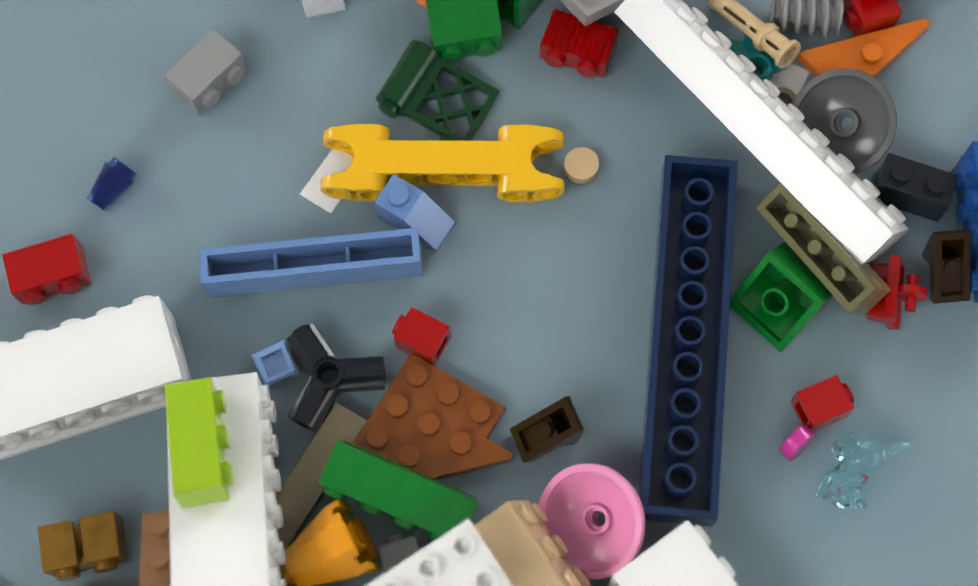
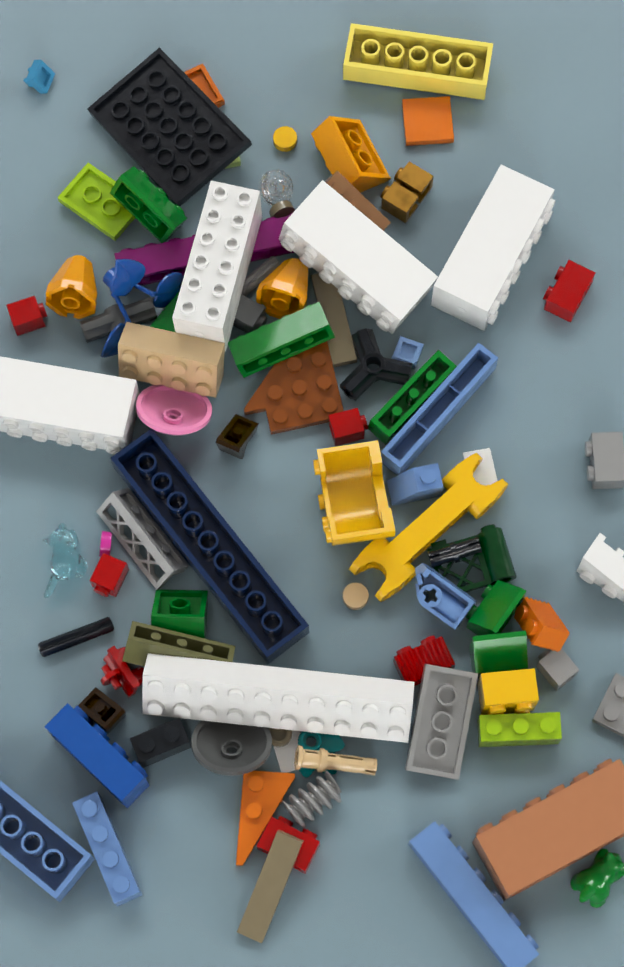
camera: 135 degrees right, 0 degrees up
(111, 183) = (588, 361): clear blue cone -> none
(198, 442) = (387, 256): lime brick -> none
(324, 299) = (411, 397): none -> green brick
(445, 111) = (454, 552): none -> black pin
(497, 239) = (353, 494): none -> yellow cylinder
(500, 78) = (452, 601): none -> medium blue piece
(745, 414) = (144, 532): none -> light grey fence
(912, 374) = (75, 637): none -> black axle

